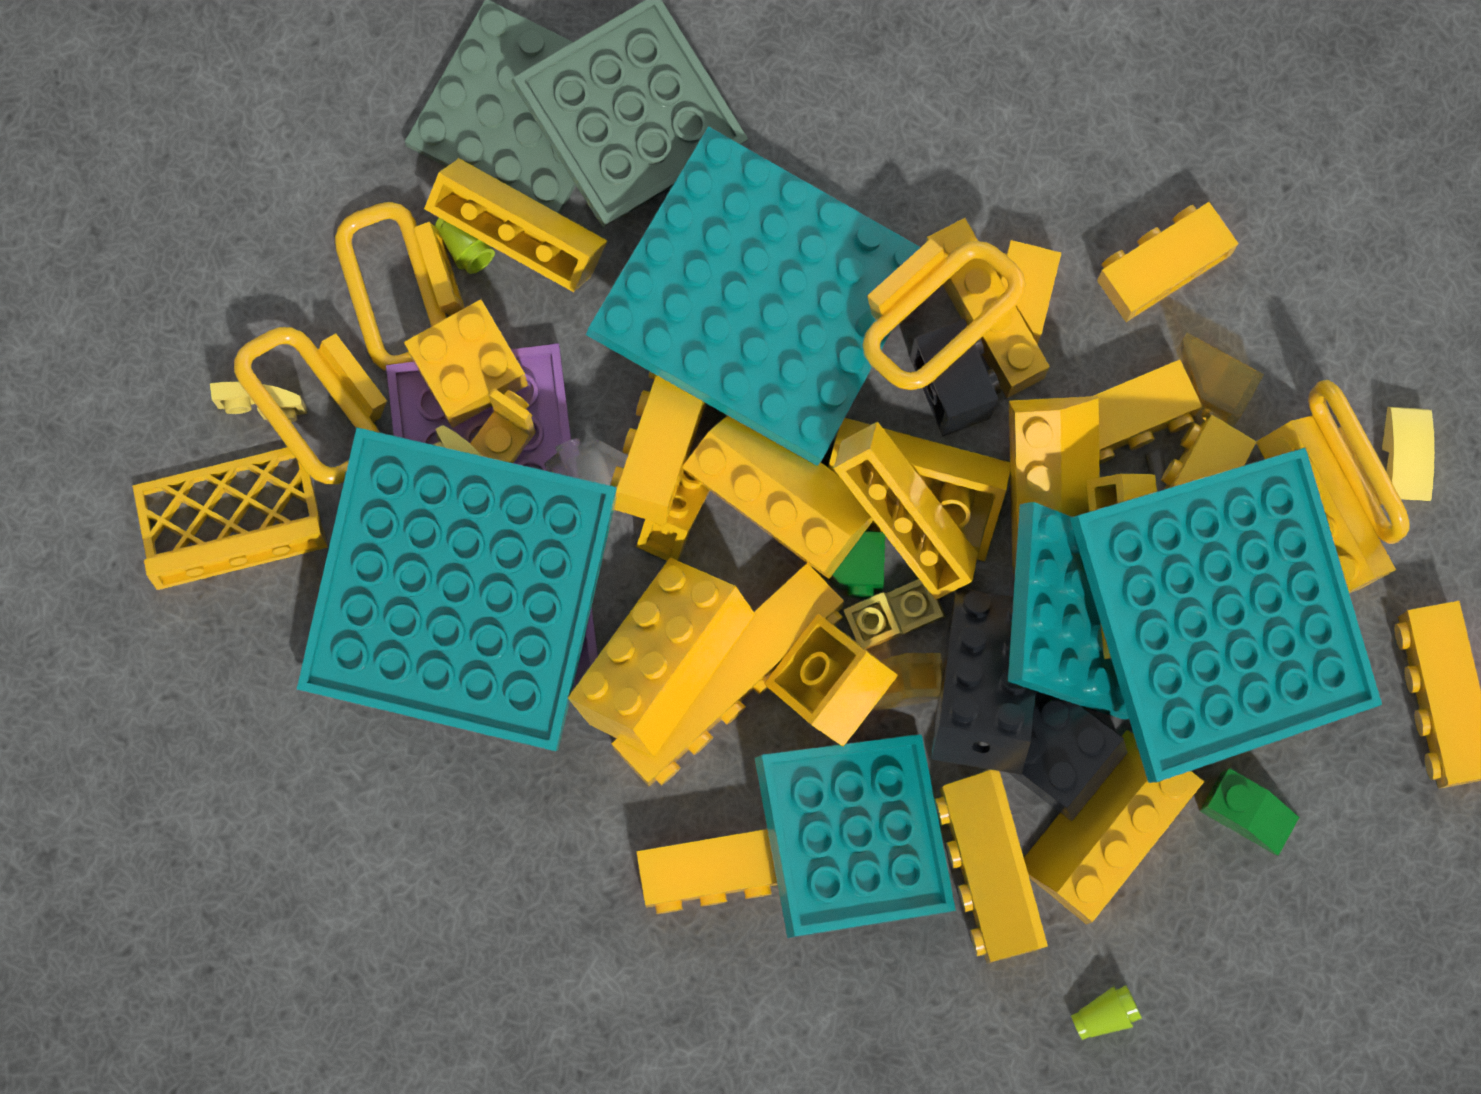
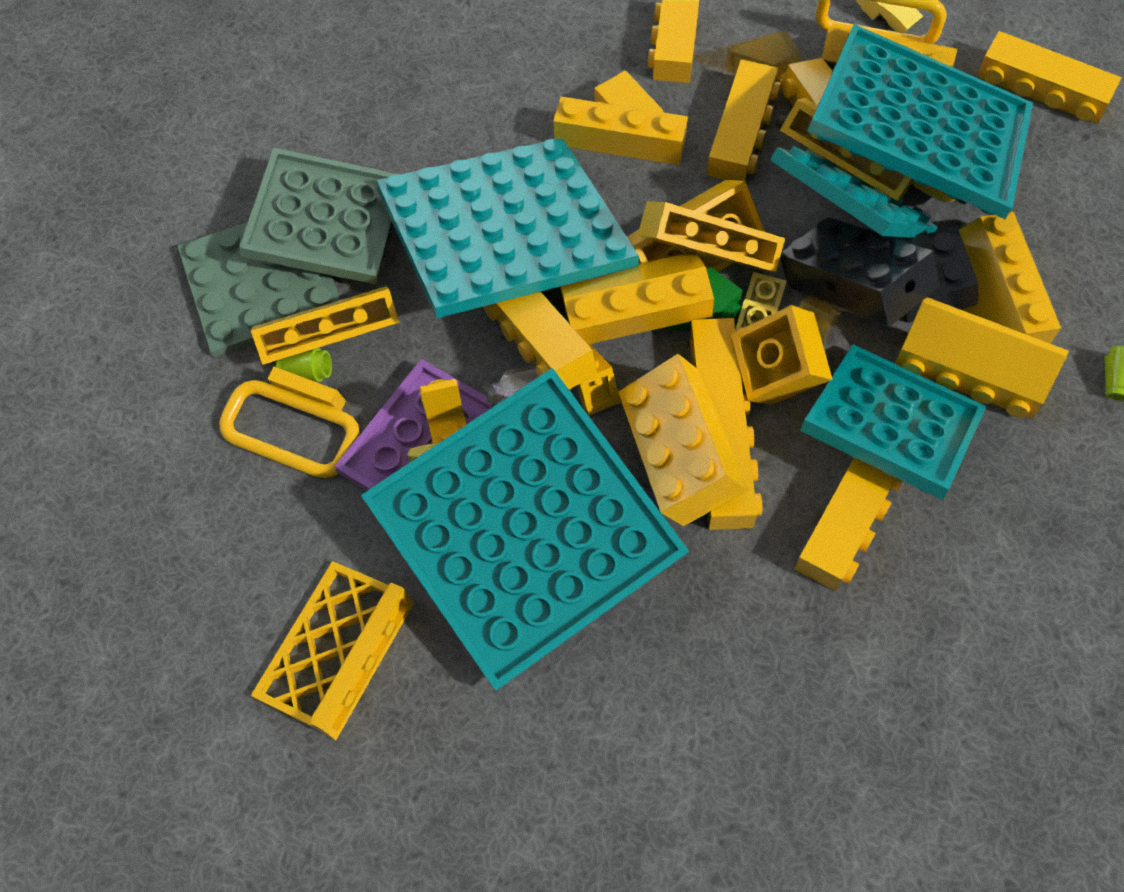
camera: 45 degrees left, 15 degrees down
(235, 399) = (288, 553): light yellow slope -> none
(335, 370) = (311, 496): yellow bar -> none
(465, 361) = (381, 410): yellow brick -> none
(913, 285) = (578, 140): yellow bar -> none
(965, 390) = (648, 165): black brick -> none
(1052, 455) = (744, 153): yellow slope -> none
(1250, 811) = (1042, 212): green slope -> none

